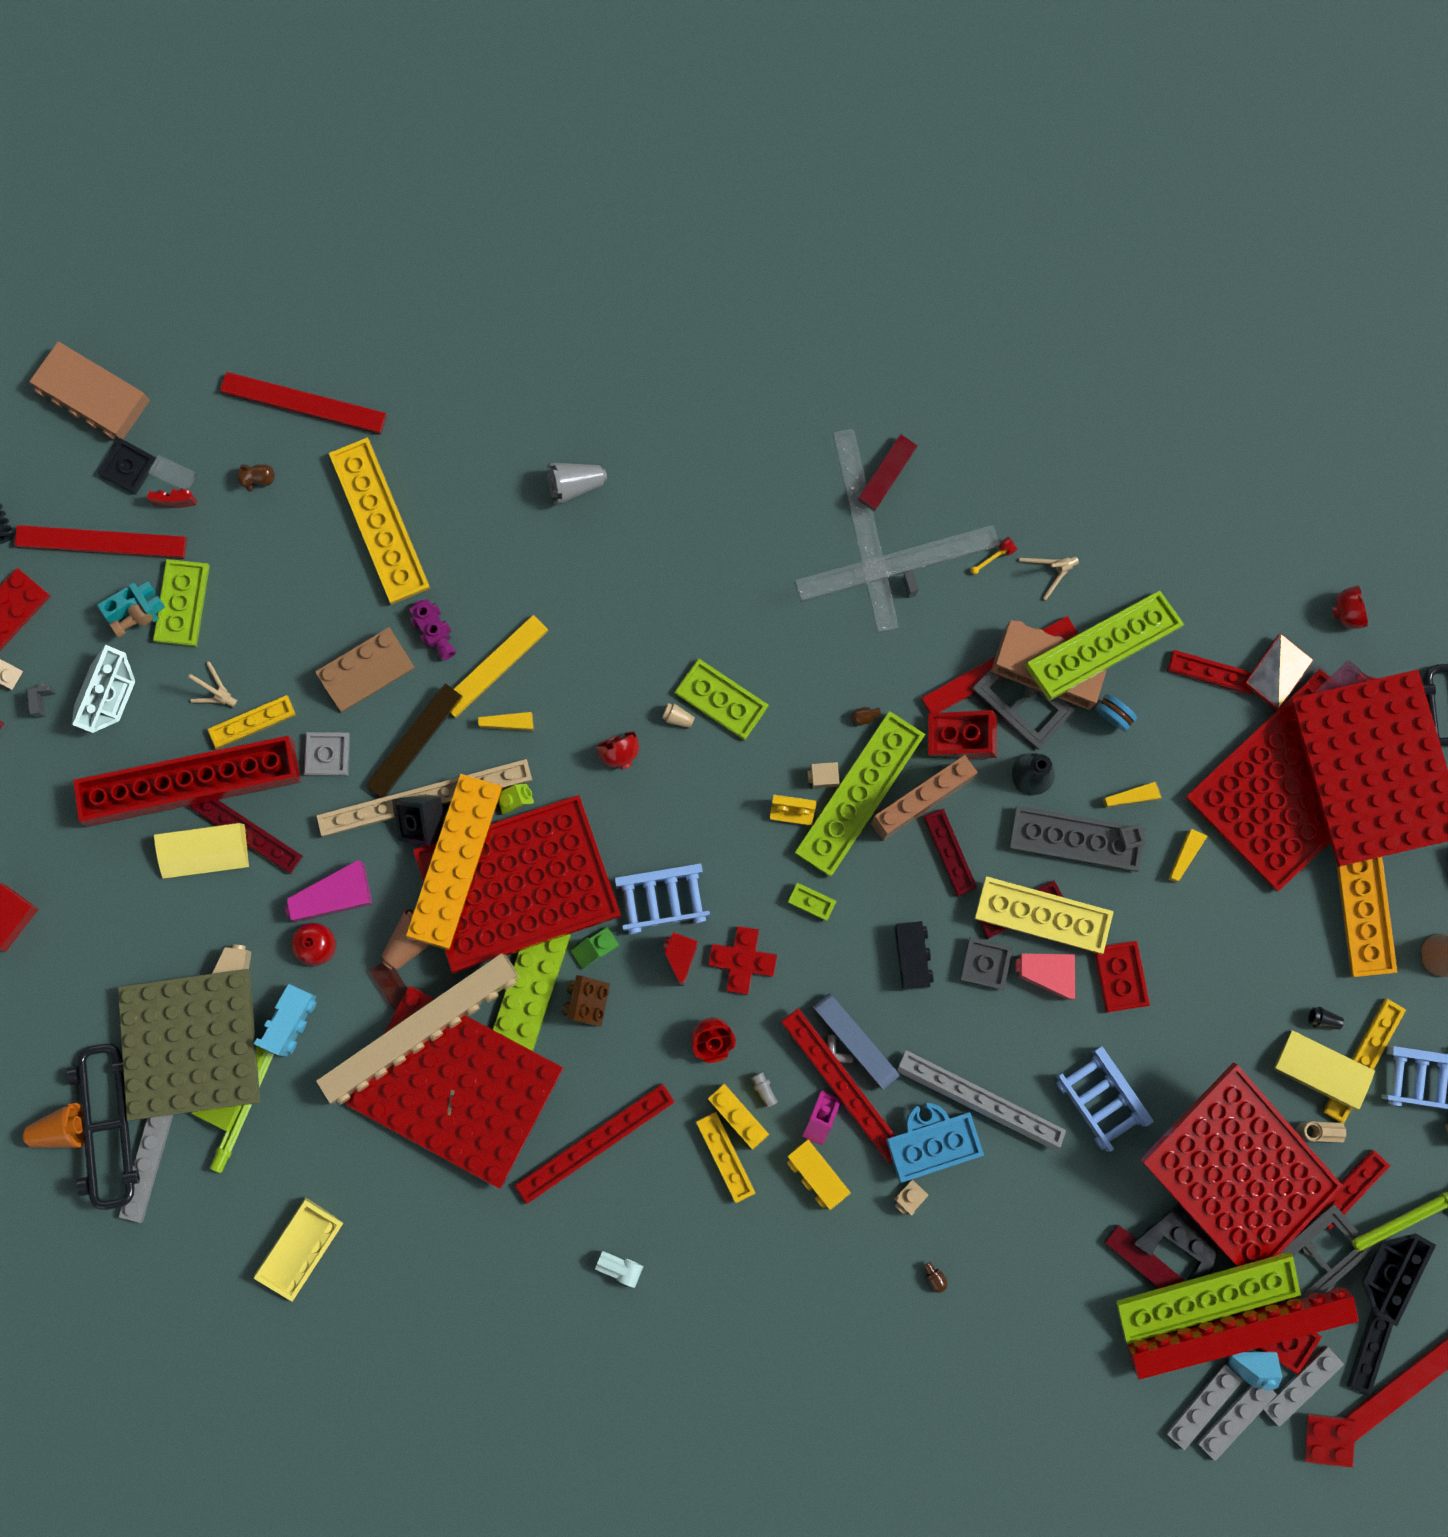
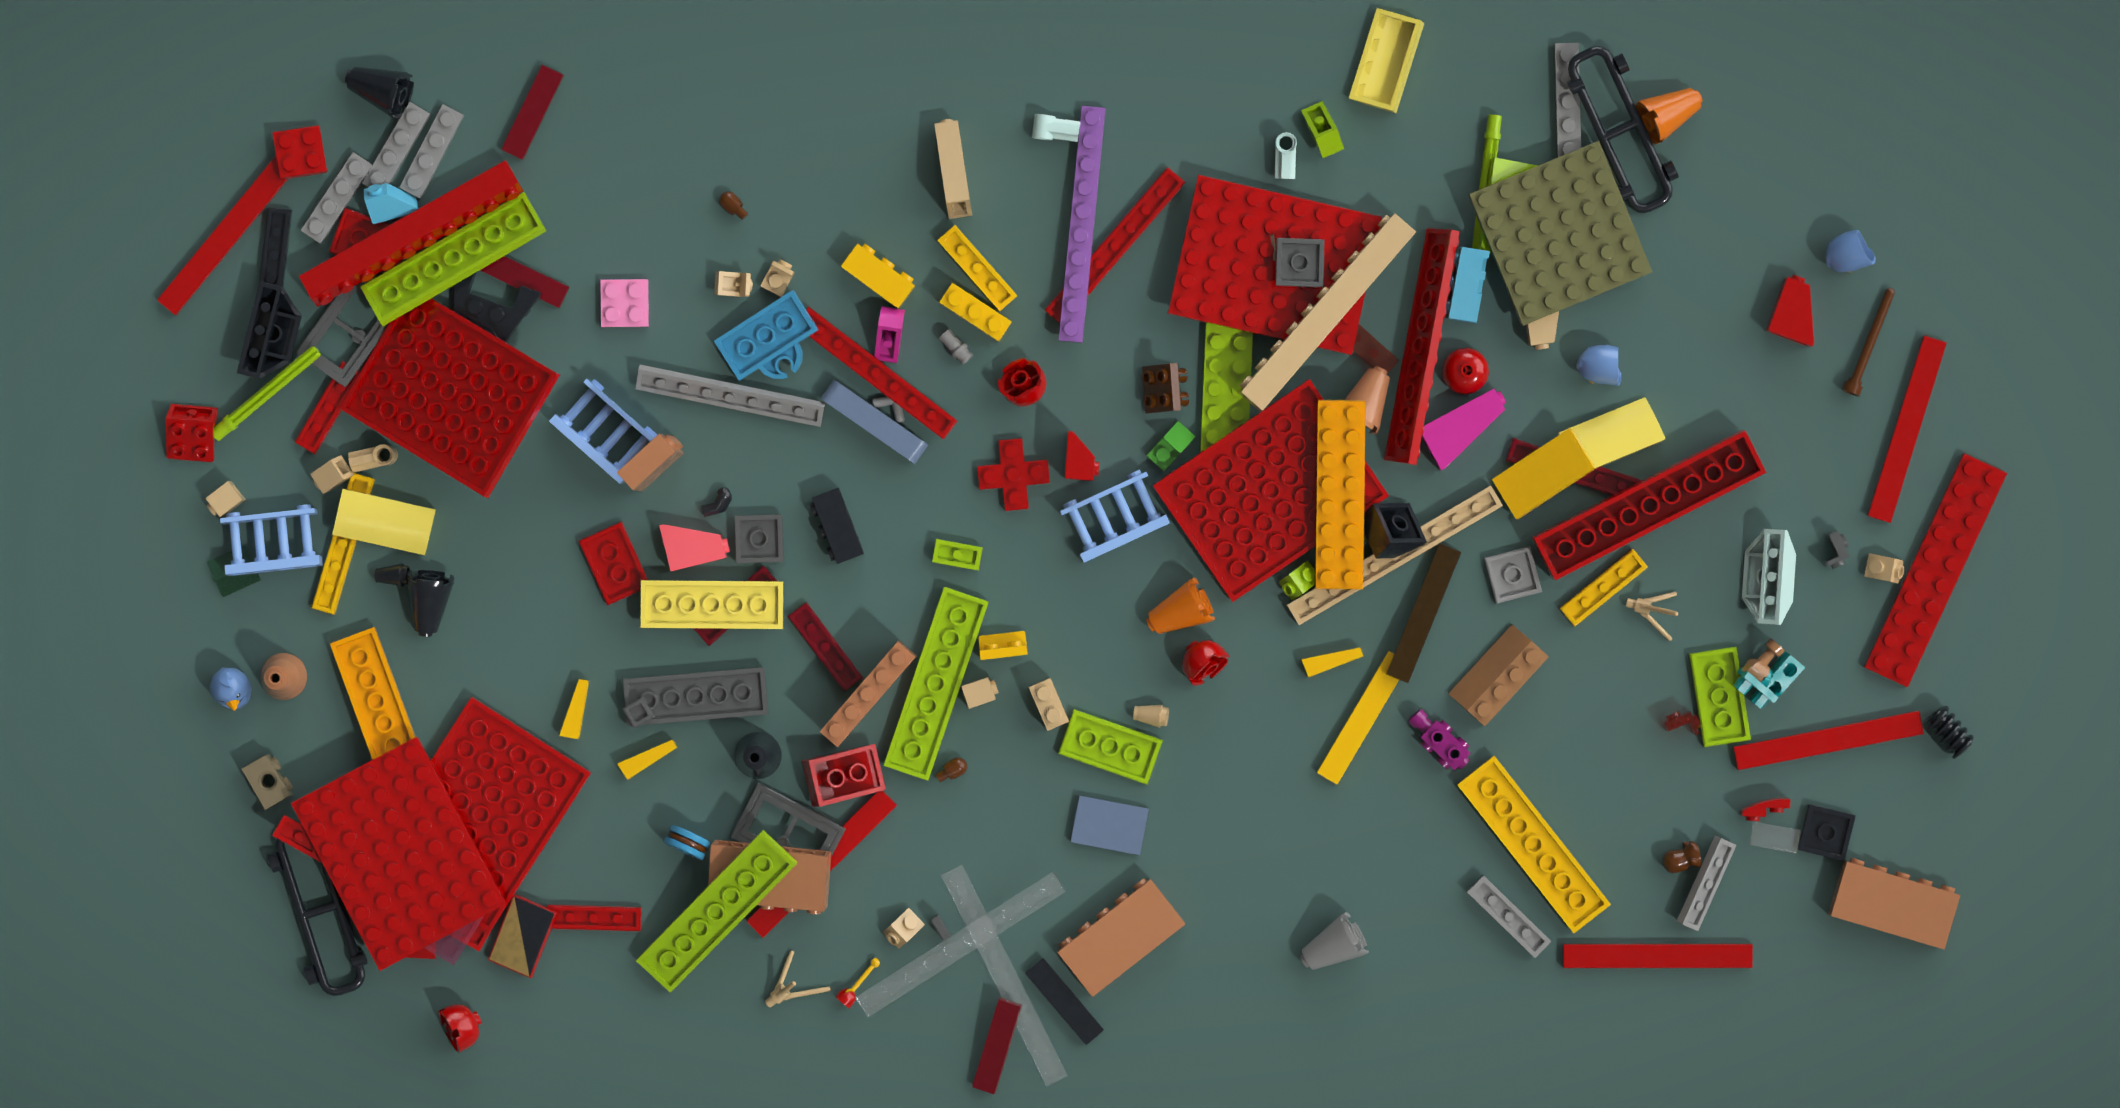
camera: 165 degrees right, 10 degrees up
(190, 916) = (1600, 365): none -> medium blue piece
(223, 591) = (1676, 720): none -> clear red bracket
(242, 449) = (1706, 883): none -> light grey plate
(270, 832) = (1543, 473): none -> yellow tile
(343, 977) = (1421, 346): none -> red plate
(375, 1200) = (1322, 129): none -> lime slope
(418, 1182) = (1285, 159): none -> light aqua piece
(419, 466) = (1509, 916): none -> light grey plate
(430, 1081) = (1299, 262): none -> dark grey plate
(618, 1173) = (1082, 224): none -> medium lavender plate
(625, 799) = (1181, 609): none -> orange cone
(723, 1256) = (953, 169): none -> tan slope
(740, 632) = (1109, 825): none -> sand blue tile
(756, 535) = (1120, 936): none -> nougat brick
(765, 748) = (1049, 704): none -> tan brick
(819, 496) = (1064, 1001): none -> black tile
(942, 591) = (903, 928): none -> tan bracket
(953, 1203) = (733, 284): none -> tan bracket
(1012, 1004) = (721, 503): none -> black arm
(1057, 1213) = (625, 303): none -> bright pink plate
(1073, 1055) = (651, 462): none -> nougat brick
(1101, 1418) = (532, 112): none -> dark red tile
(1239, 1481) = (381, 88): none -> black cone
(1299, 989) = (428, 599): none -> black cone
(1363, 1126) = (331, 474): none -> tan brick

